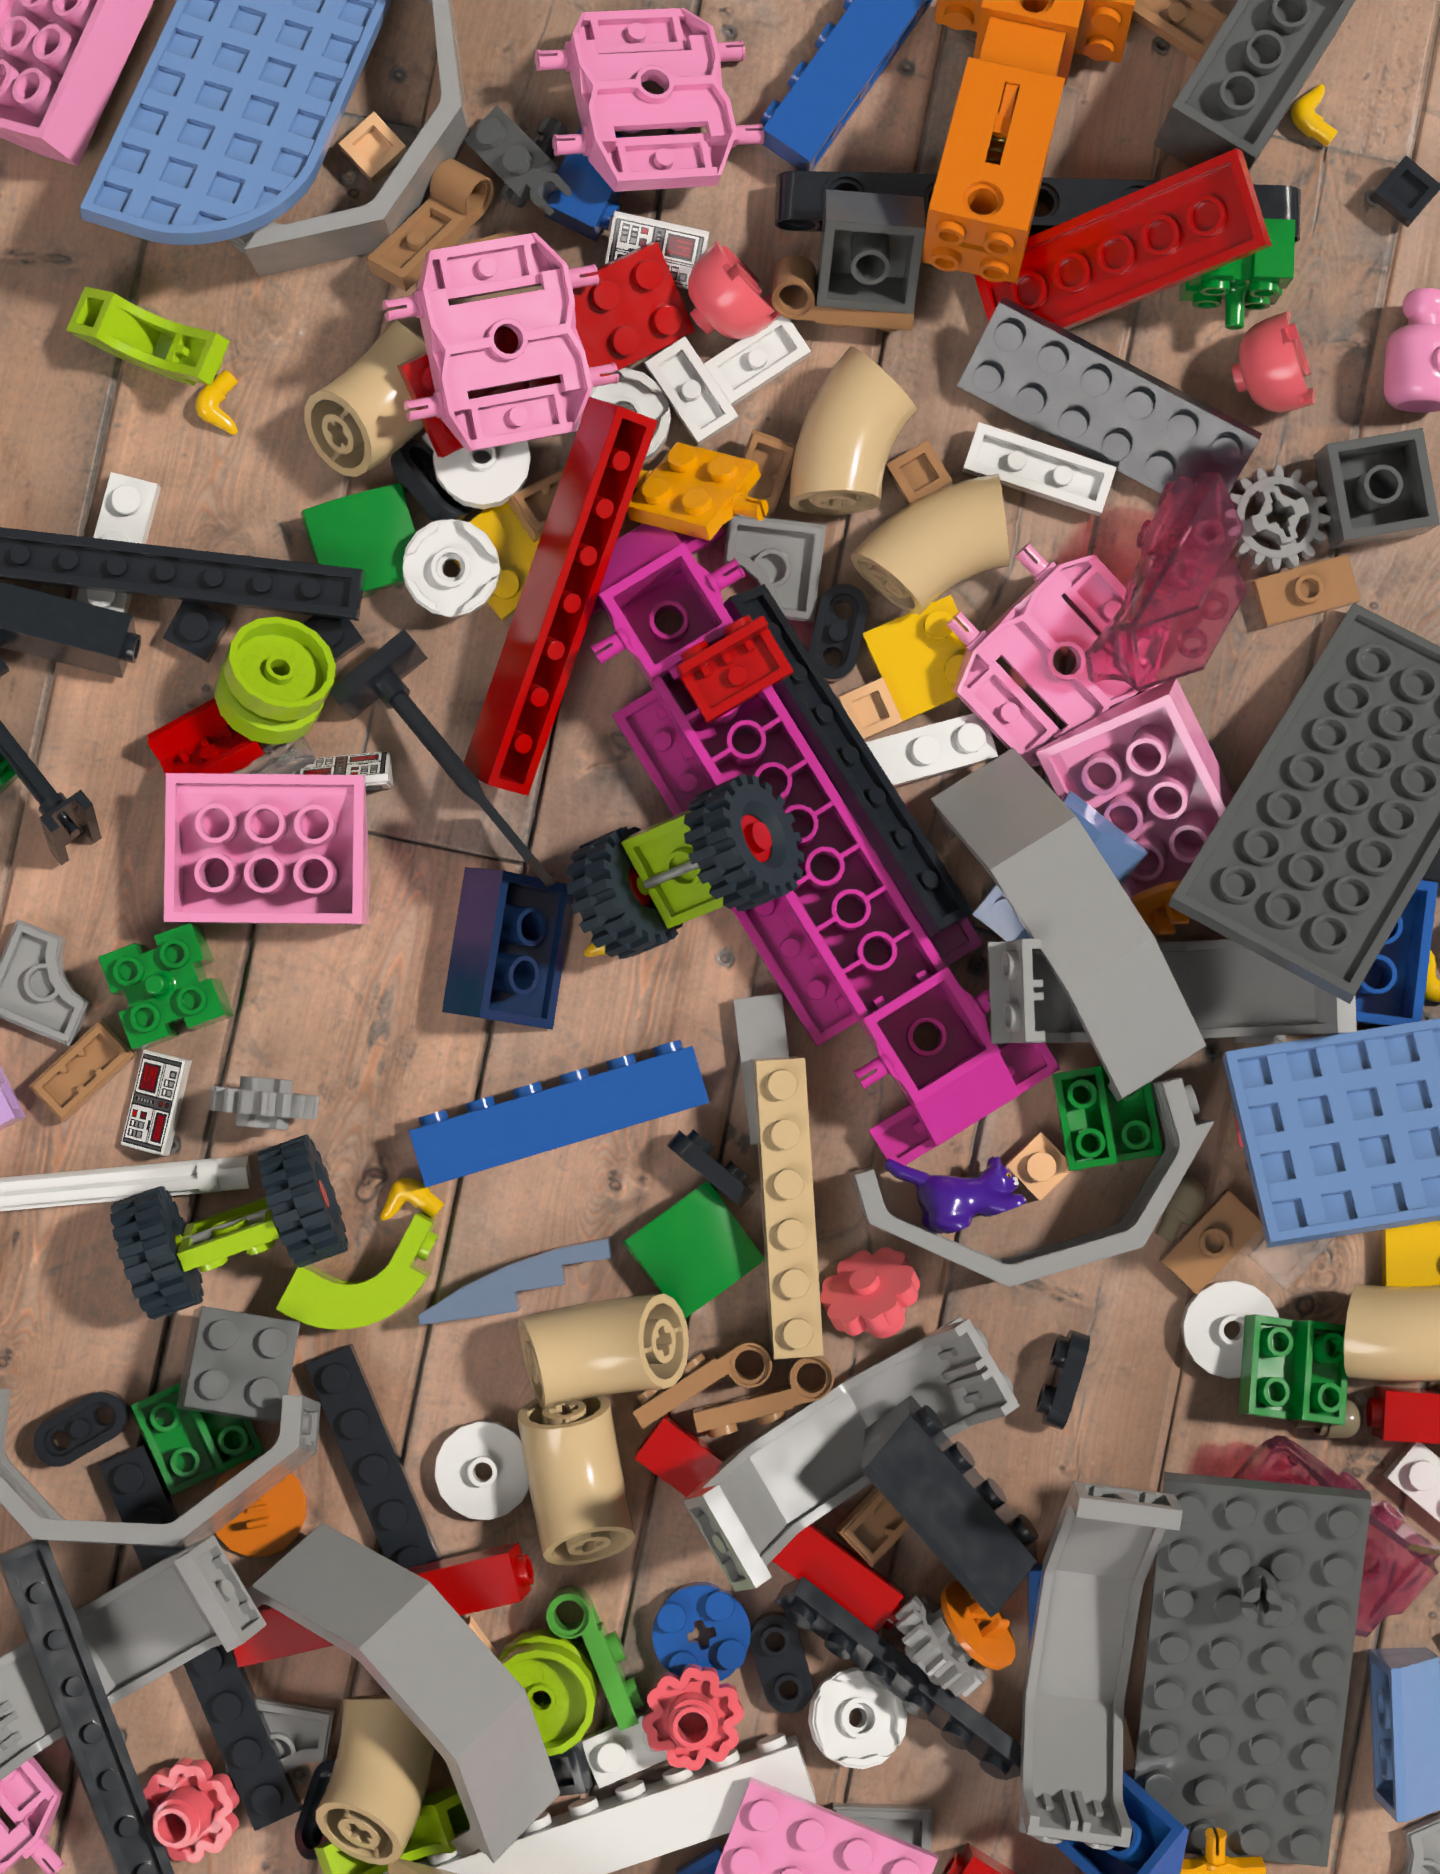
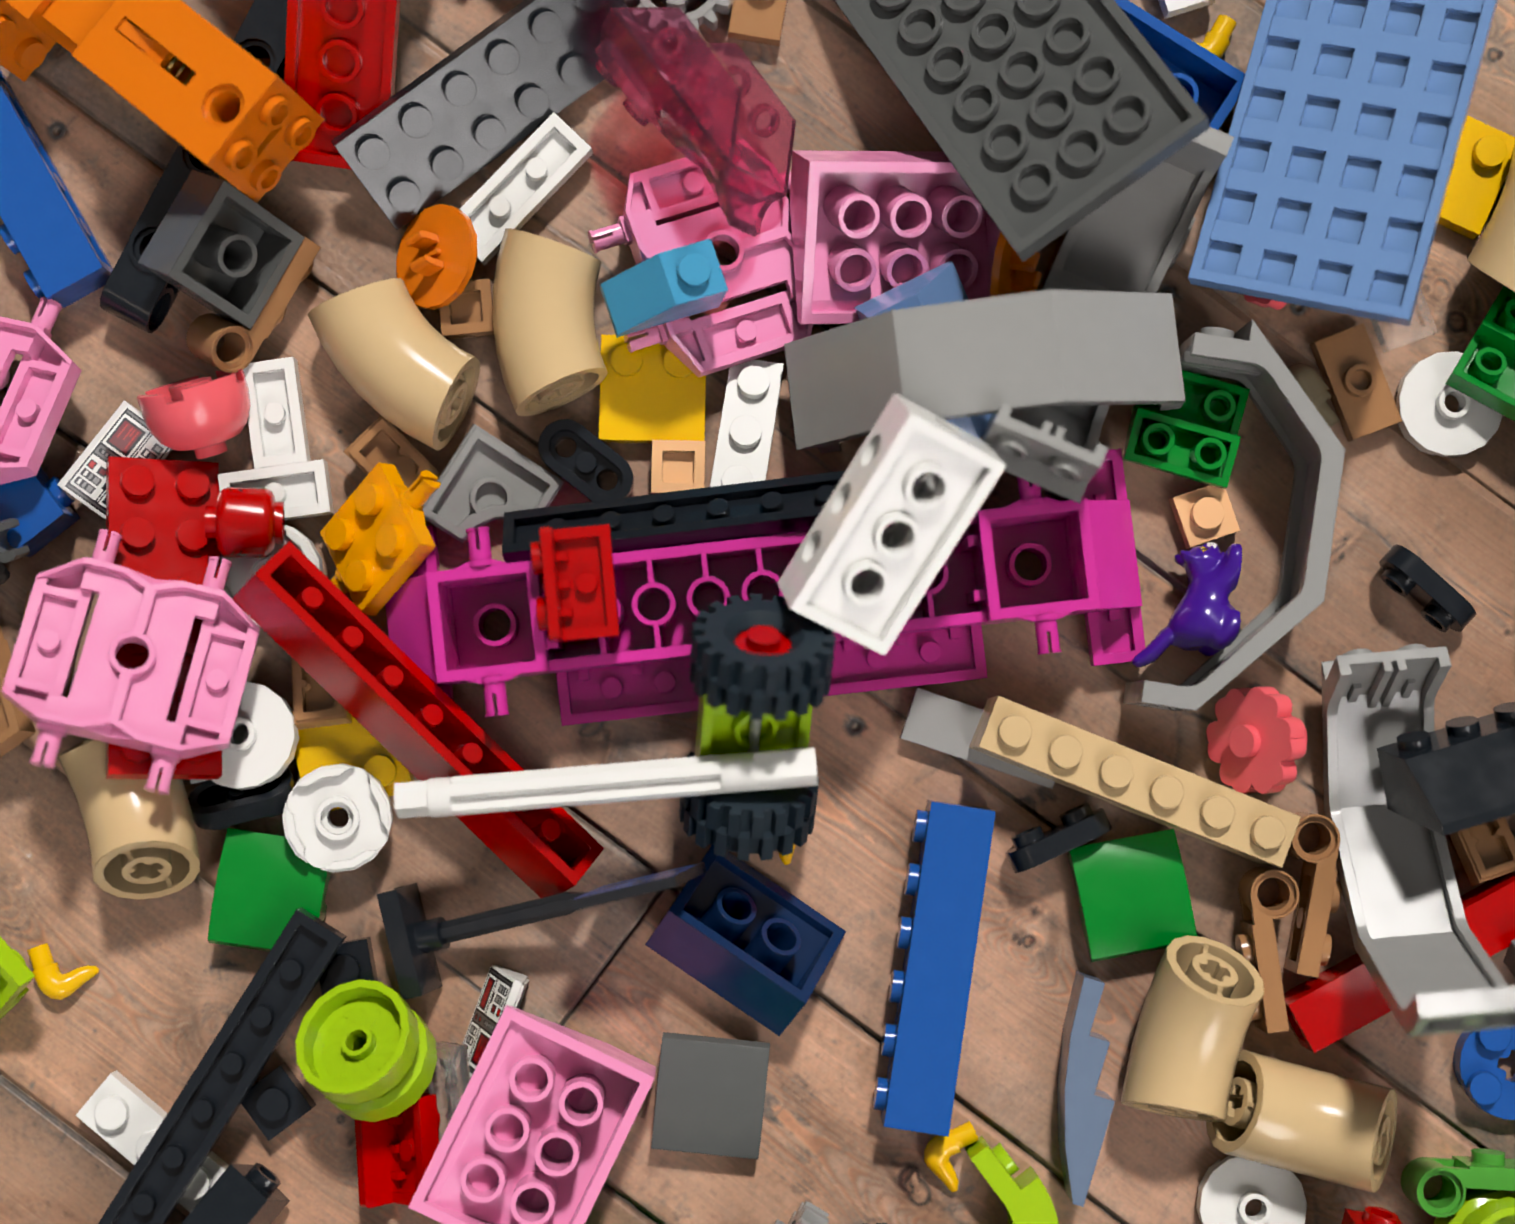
camera: 65 degrees left, 0 degrees up
(366, 979) = (710, 1095): none -> dark grey slope
(583, 769) = (607, 783): none -> white piece
(656, 378) = (246, 522): none -> red head
(917, 870) = (908, 554): none -> white brick
(950, 428) = (437, 256): none -> orange piece
(1009, 626) = (665, 288): none -> dark azure slope

